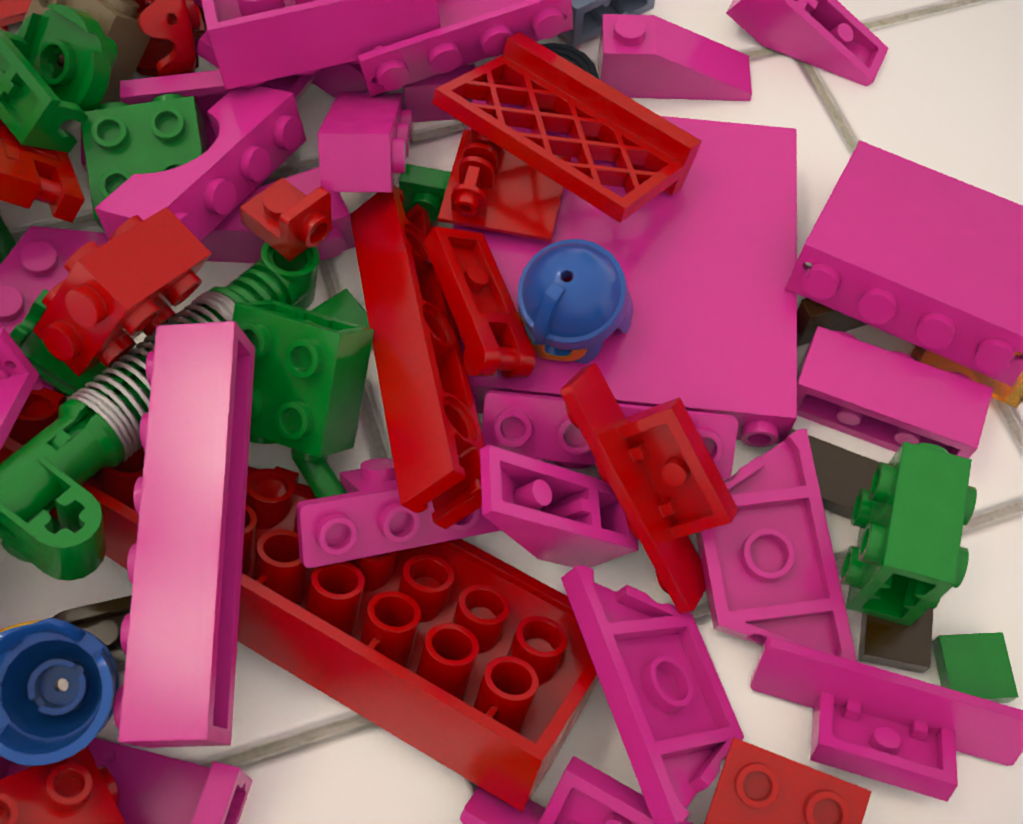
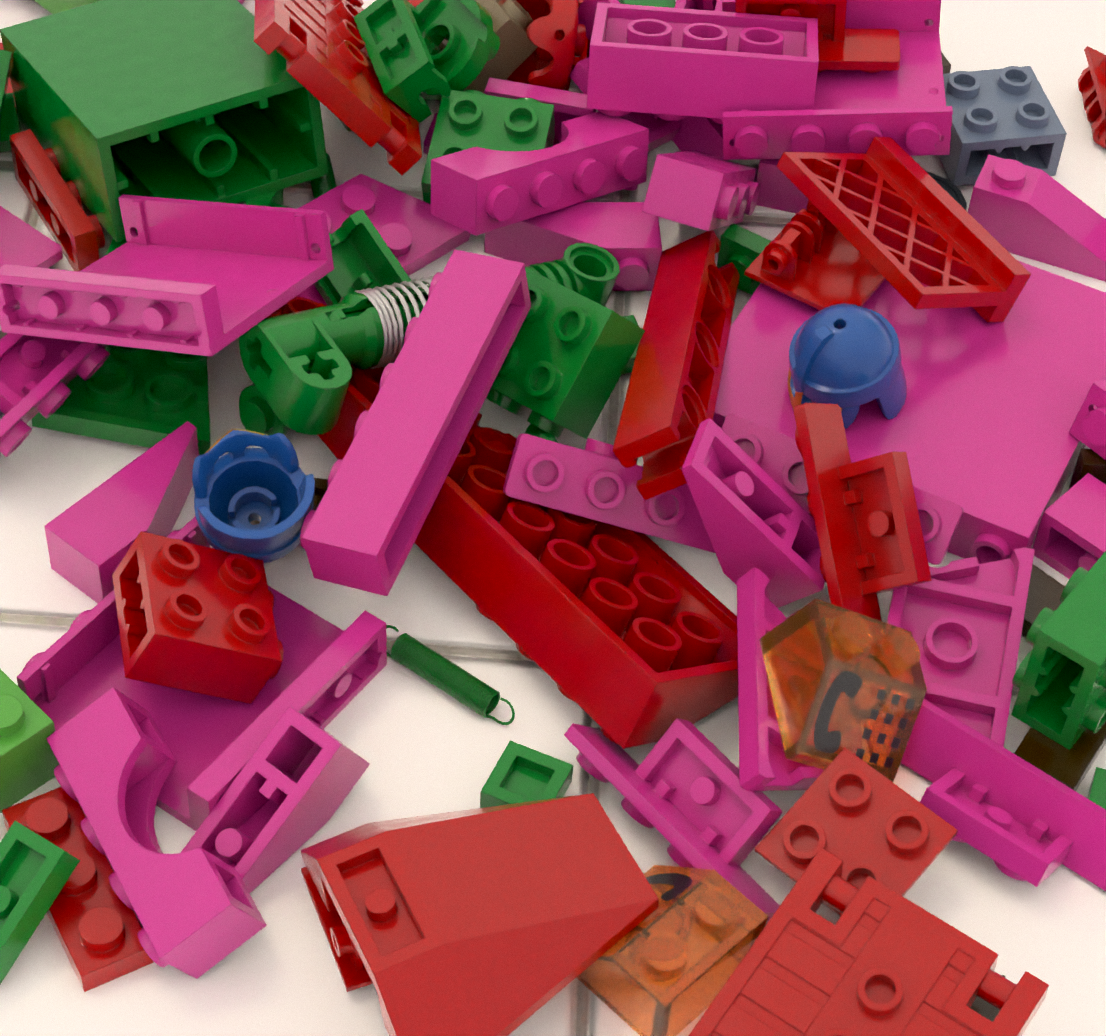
camera: 20 degrees right, 15 degrees down
(120, 290) = (426, 218): red brick -> none
(288, 217) = (603, 229): red bracket -> none
(314, 777) = (447, 676): none -> green piece
(480, 304) = (754, 345): red plate -> none
(707, 674) = (843, 685): none -> clear orange slope

